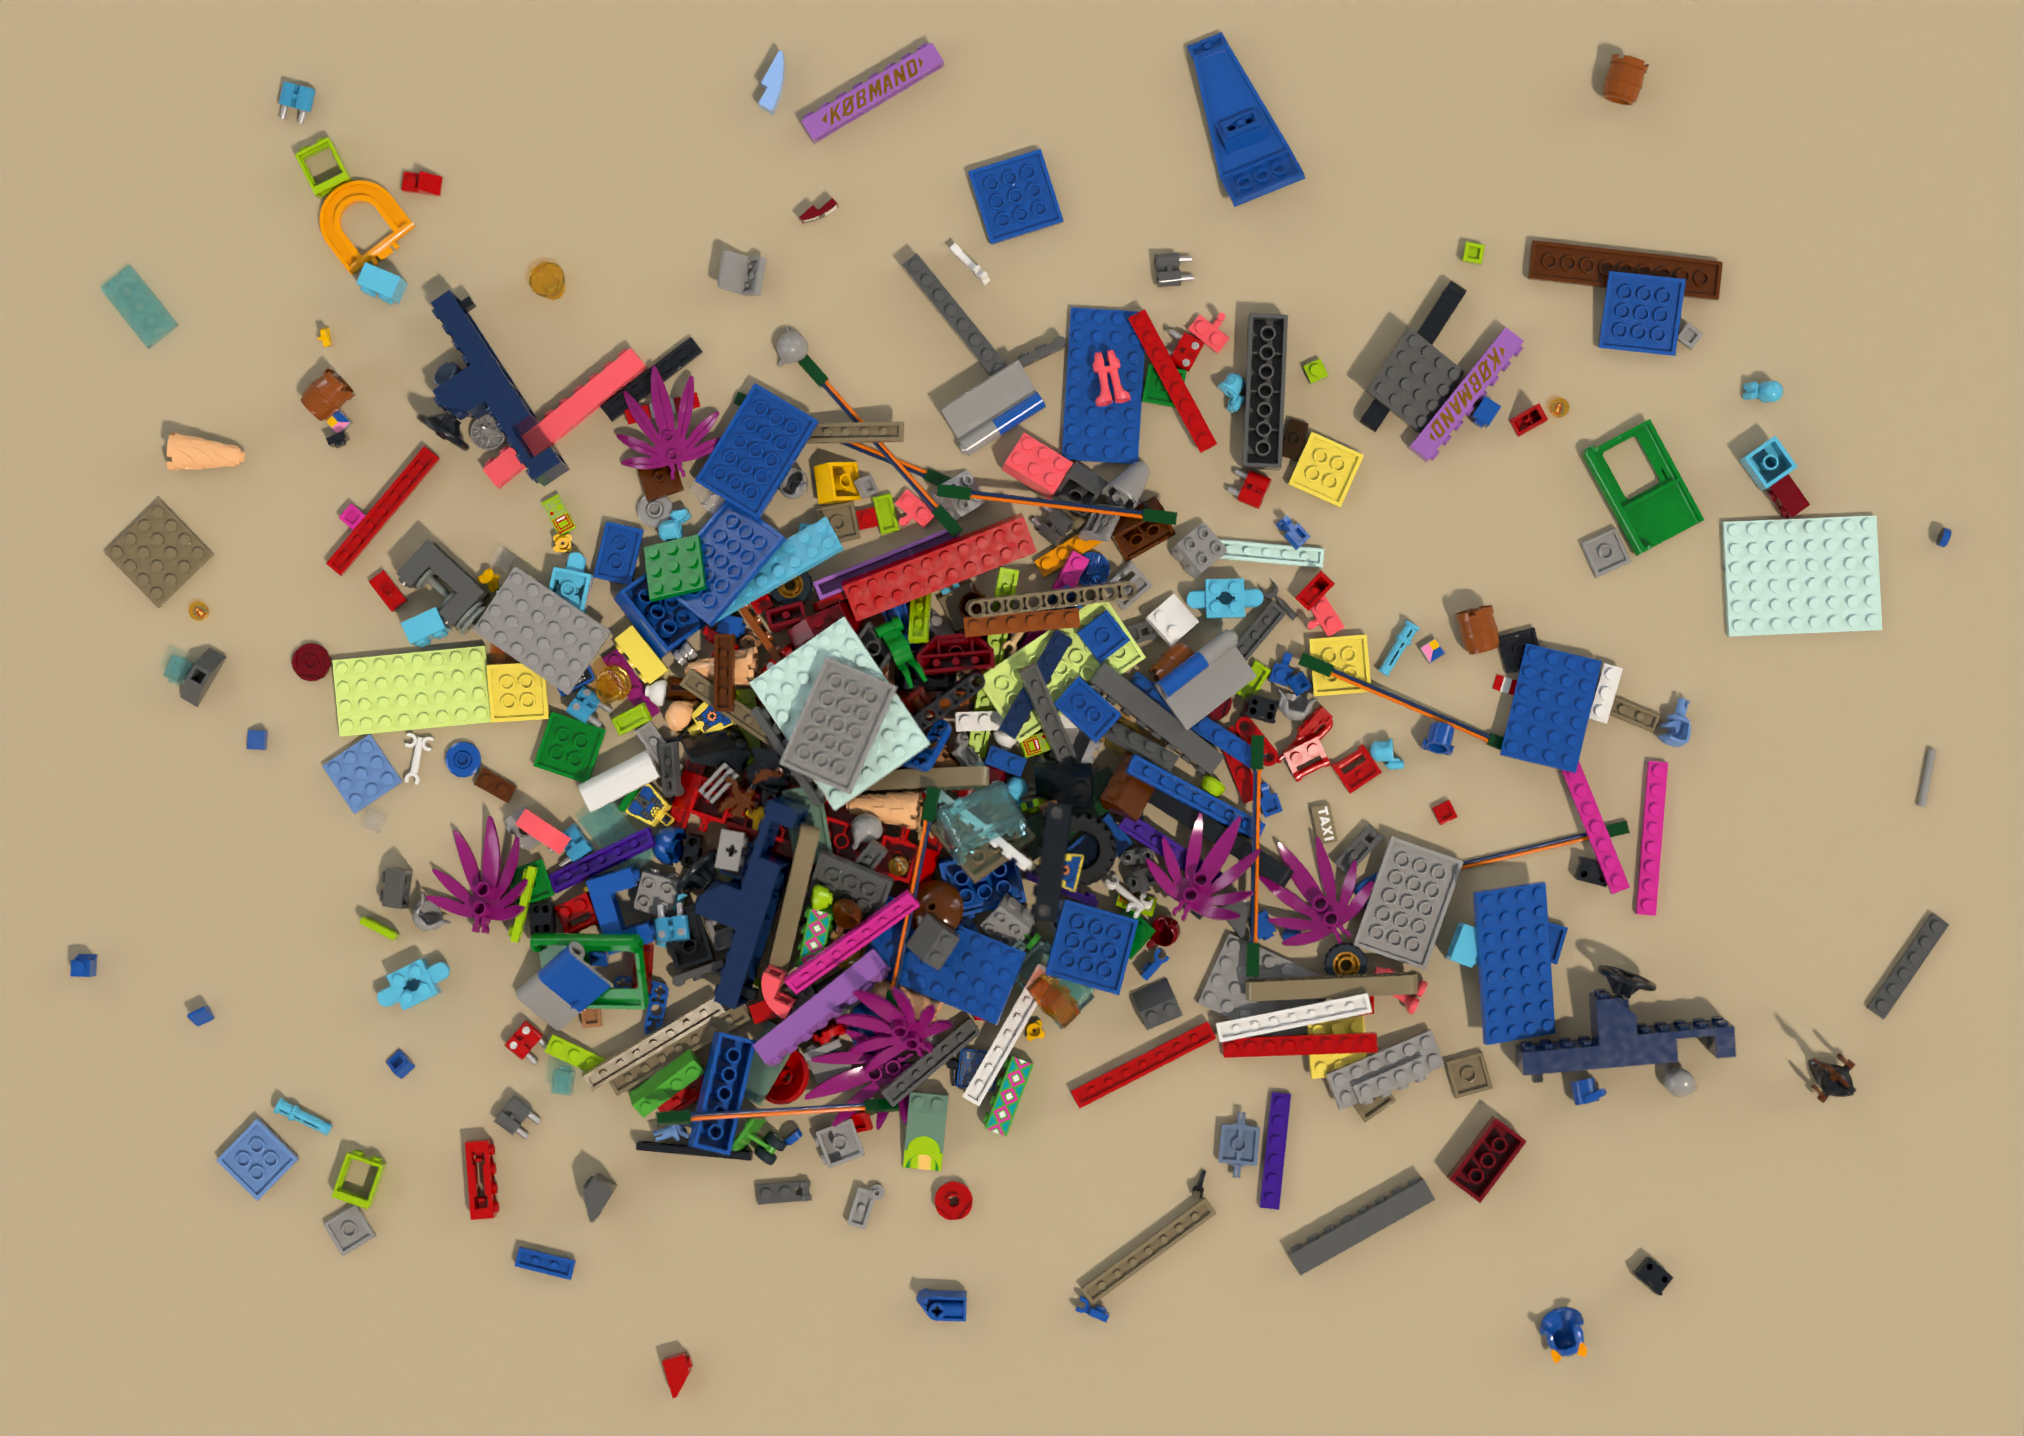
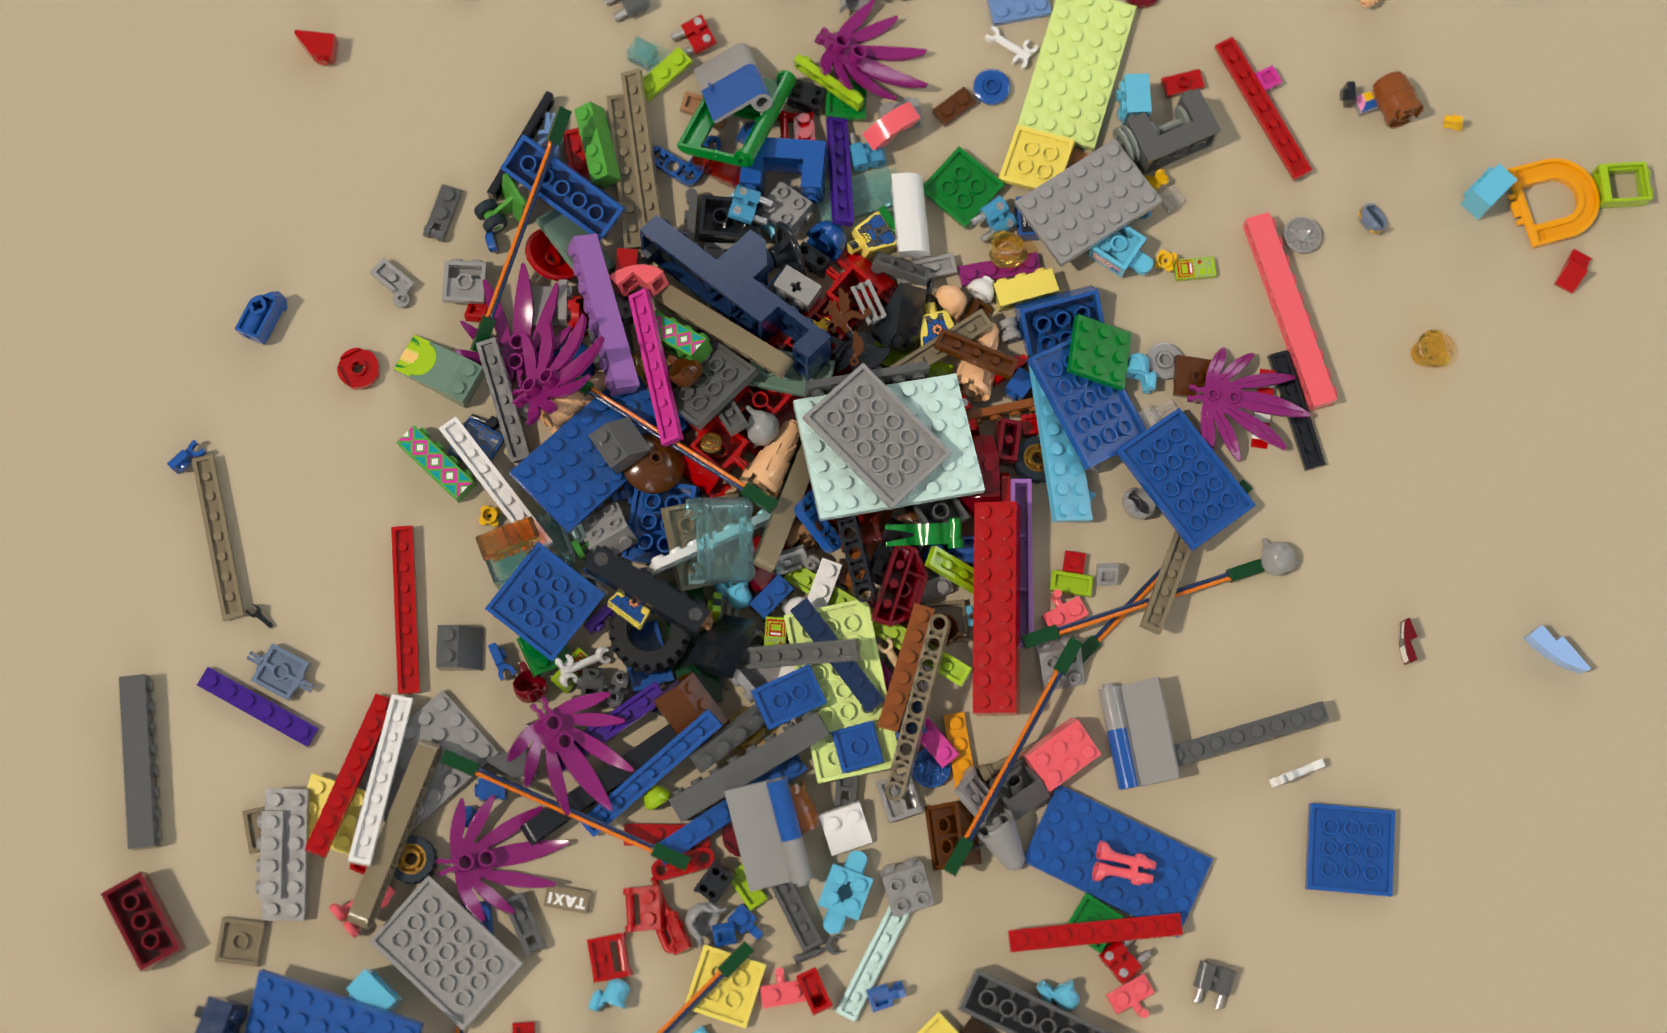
camera: 105 degrees right, 10 degrees down
(482, 390) = (1347, 241): dark blue piece -> none
(597, 1195) = (519, 38): dark grey slope -> none
(618, 553) = (1134, 308): blue plate -> none
(632, 719) = (966, 255): lime tile -> none
(741, 273) = (1372, 537): light grey bracket -> none
(749, 637) = (998, 391): medium nougat plate -> none
(820, 897) = (712, 353): lime cone -> none
(836, 482) = (1123, 545): yellow slope -> none
(842, 519) = (1081, 536): dark tan tile -> none
(873, 92) = (1512, 746): medium lavender brick -> none
(1042, 351) = (1177, 809): dark grey plate -> none
(1055, 527) = (990, 747): dark grey piece -> none
(1253, 489) = (947, 972): red piece -> none
(1269, 802) = (613, 850): blue plate -> none

